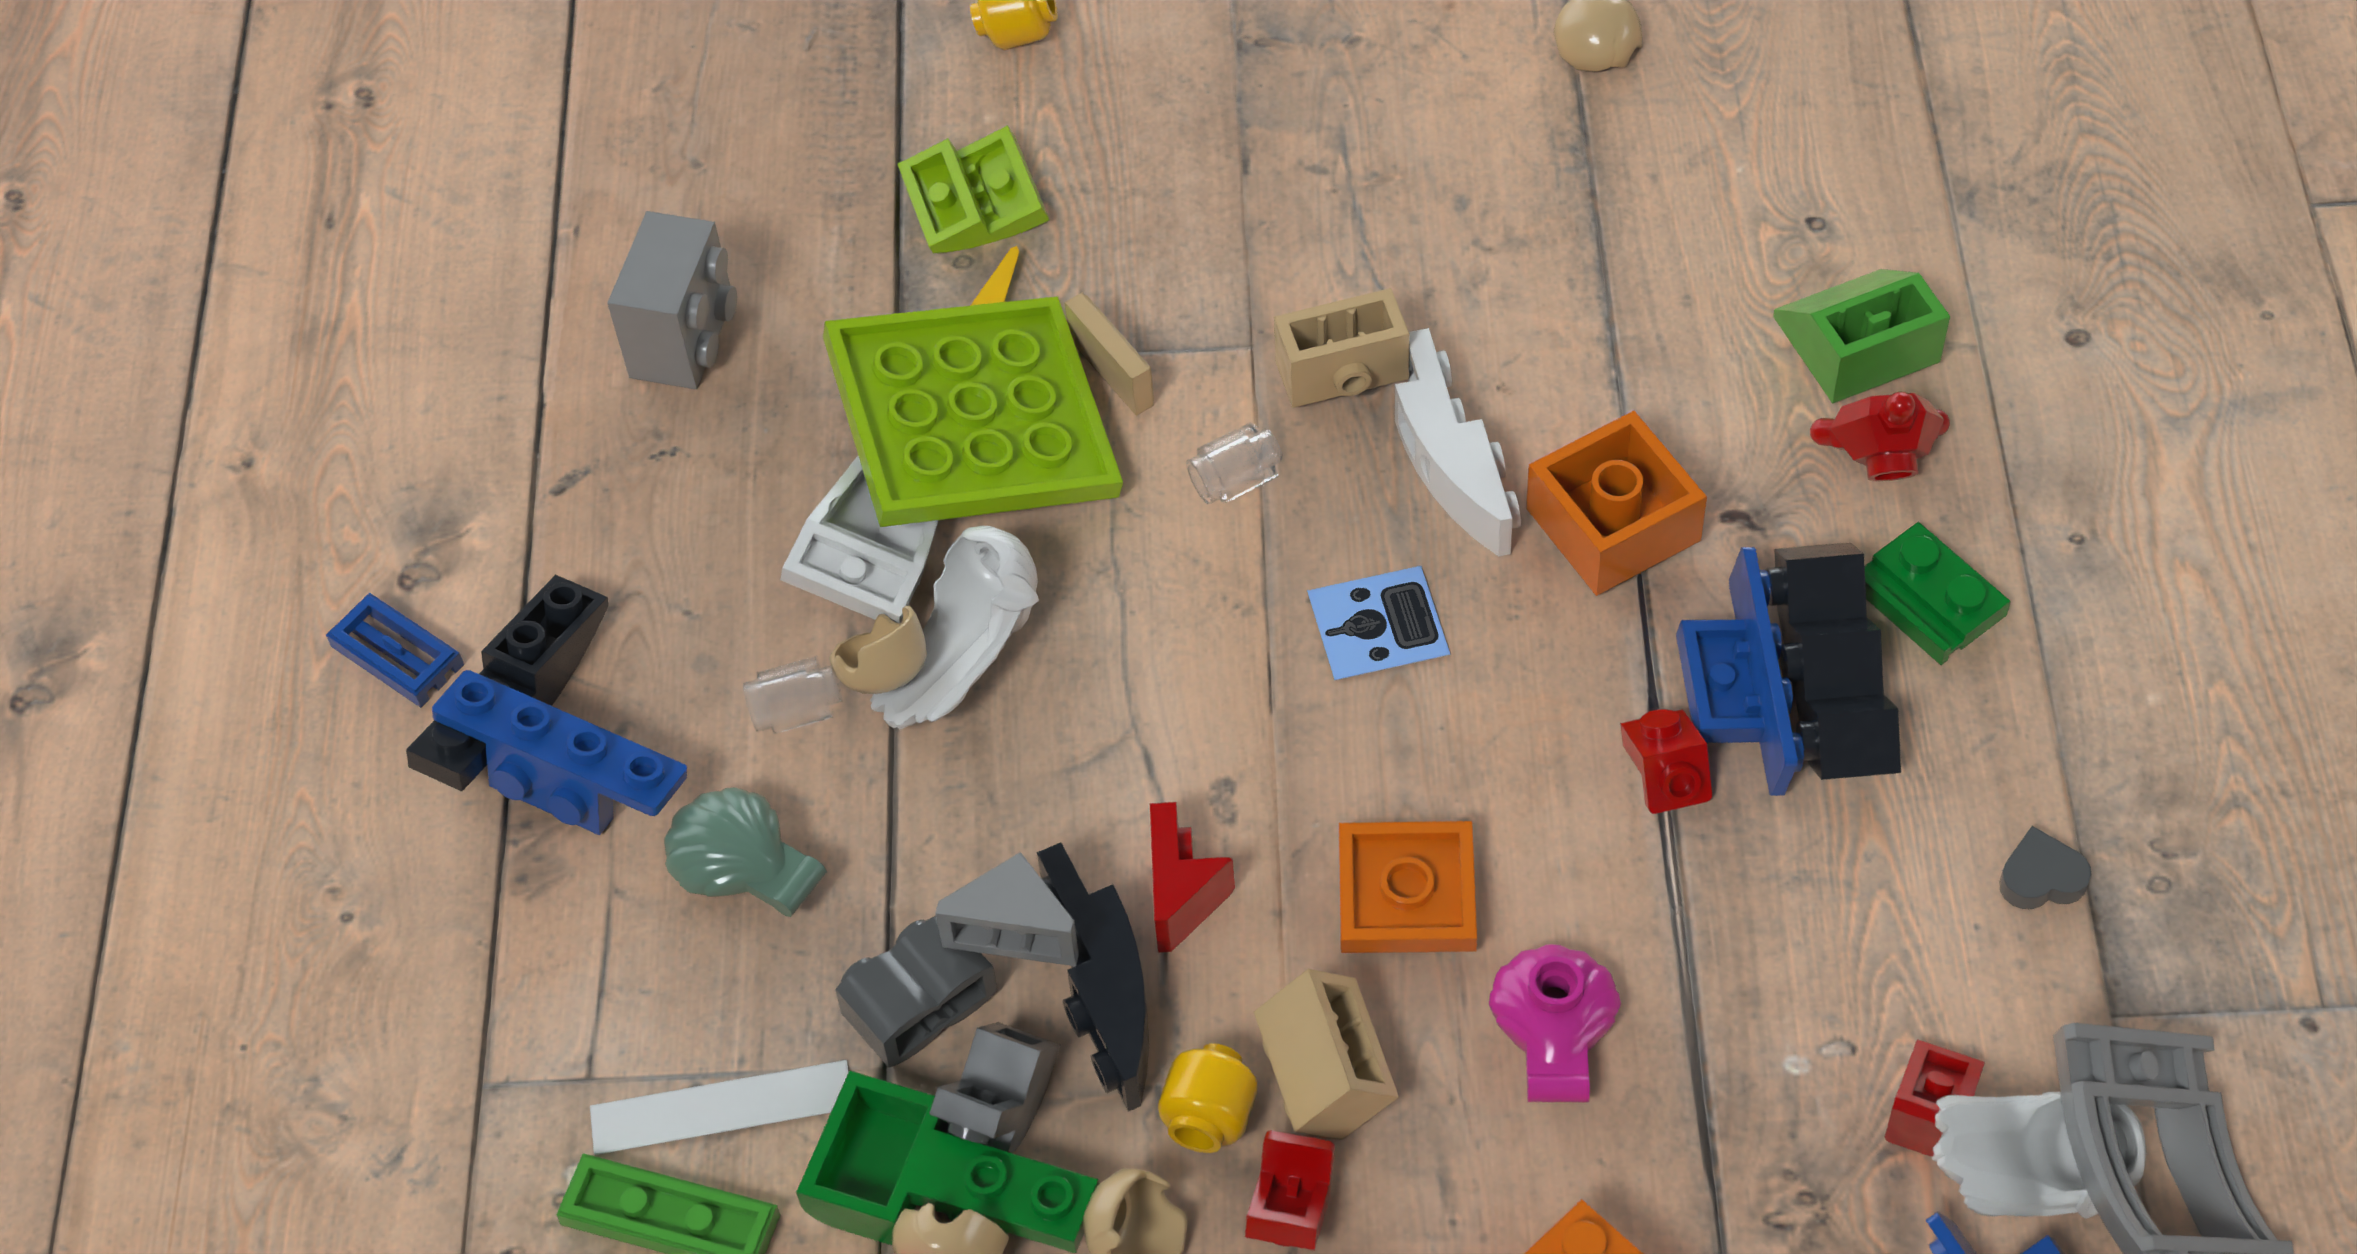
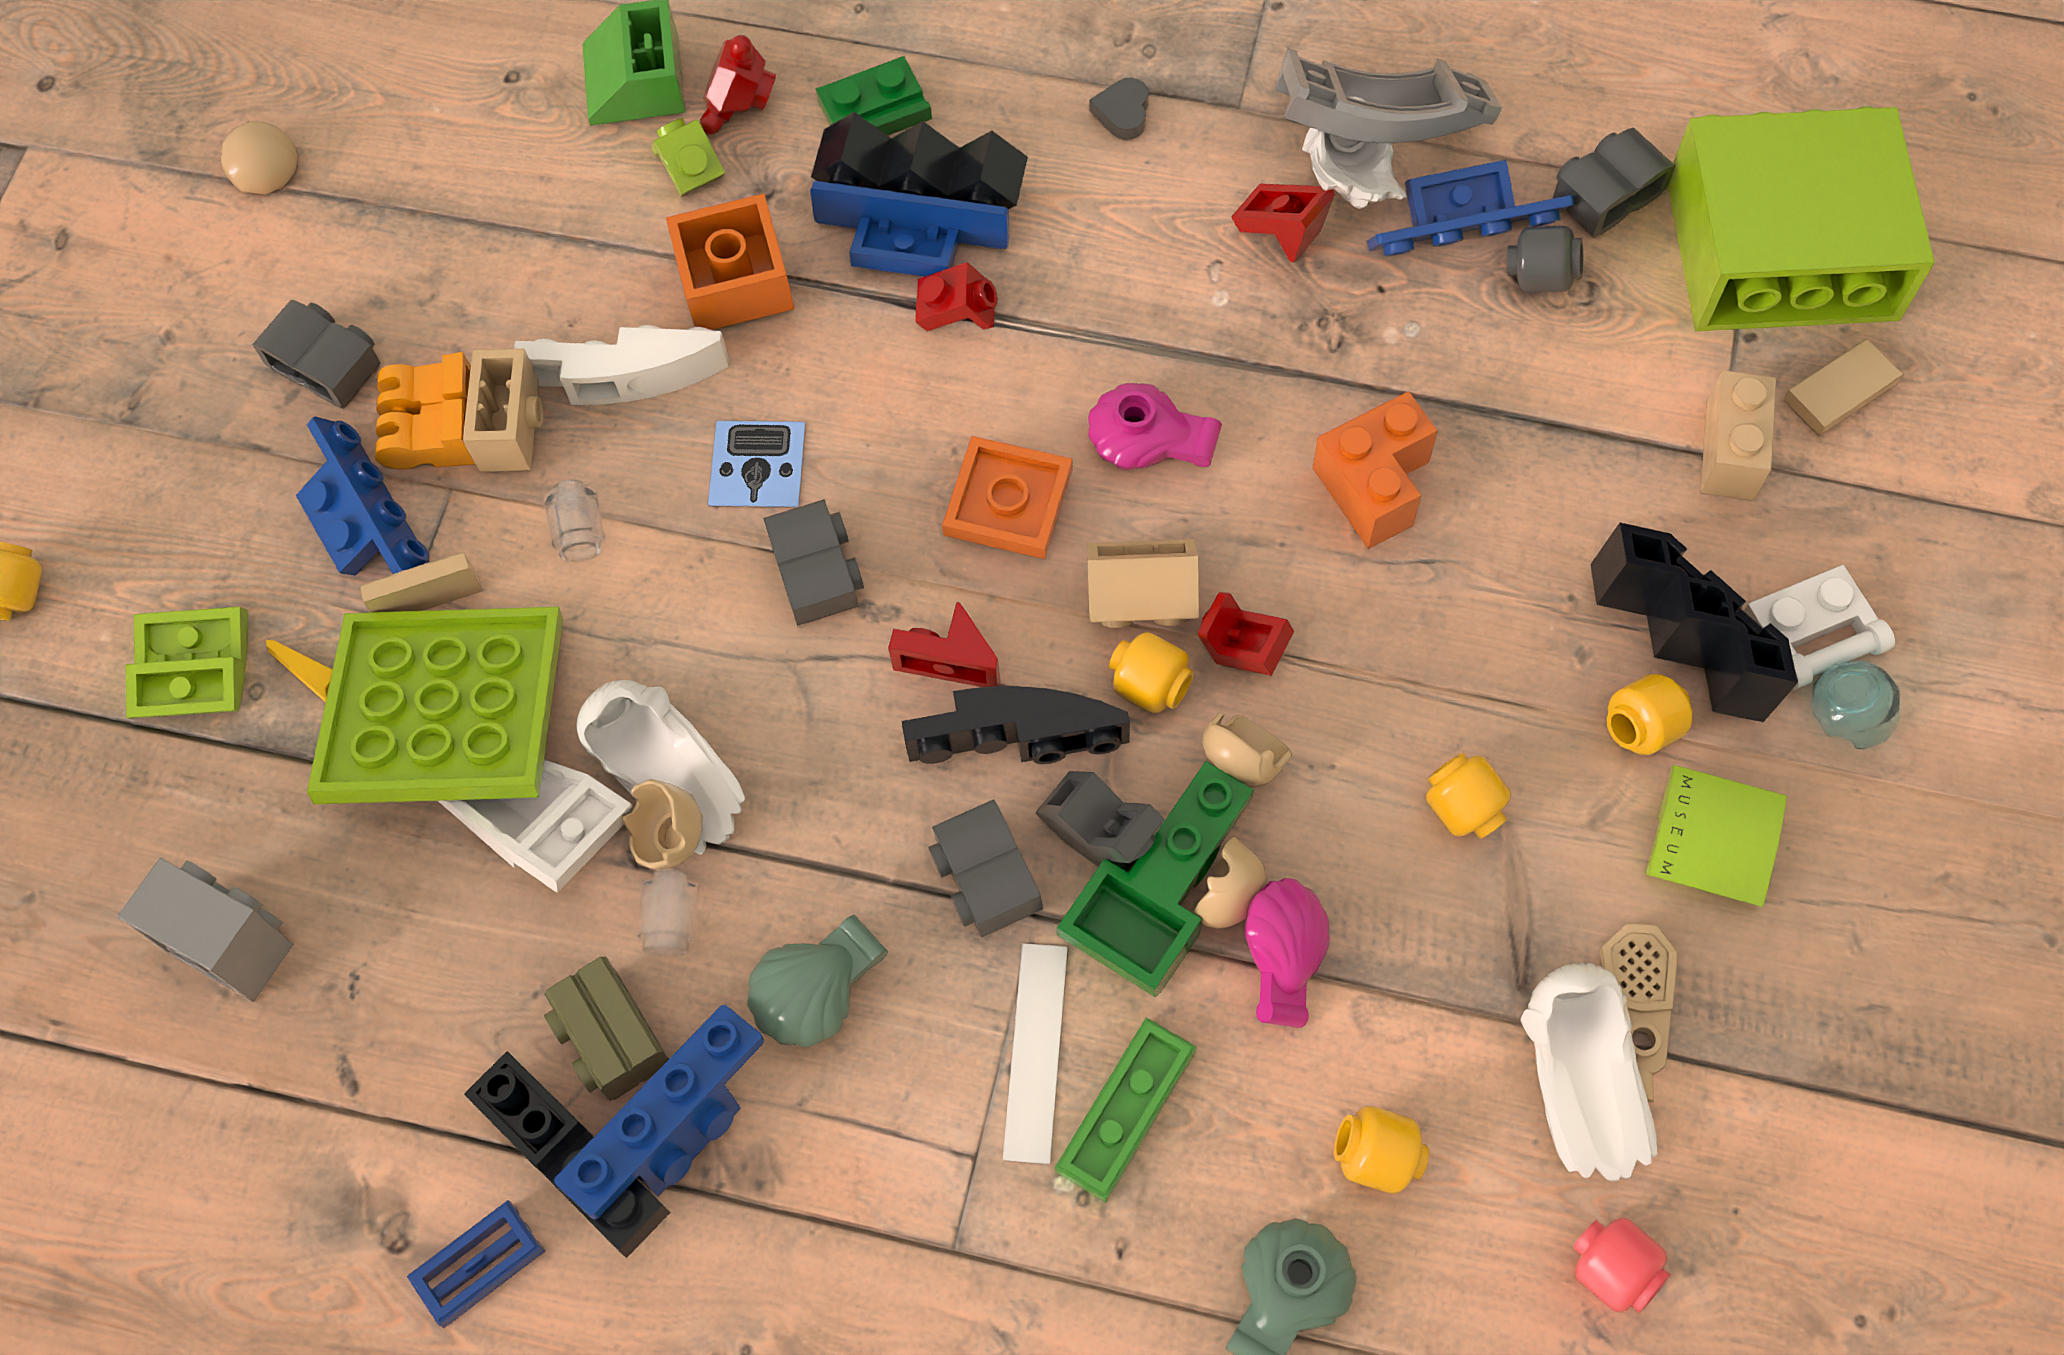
camera: 75 degrees left, 10 degrees up
(651, 676) = (605, 1029): none -> olive brick
(1008, 916) = (971, 759): light grey slope -> none
(1195, 267) = (354, 506): none -> blue bracket
(1253, 706) = (812, 561): none -> dark grey brick
(1343, 273) = (423, 414): none -> light orange legs
(1366, 166) = (317, 352): none -> dark grey brick
(1762, 419) = (687, 155): none -> lime bracket

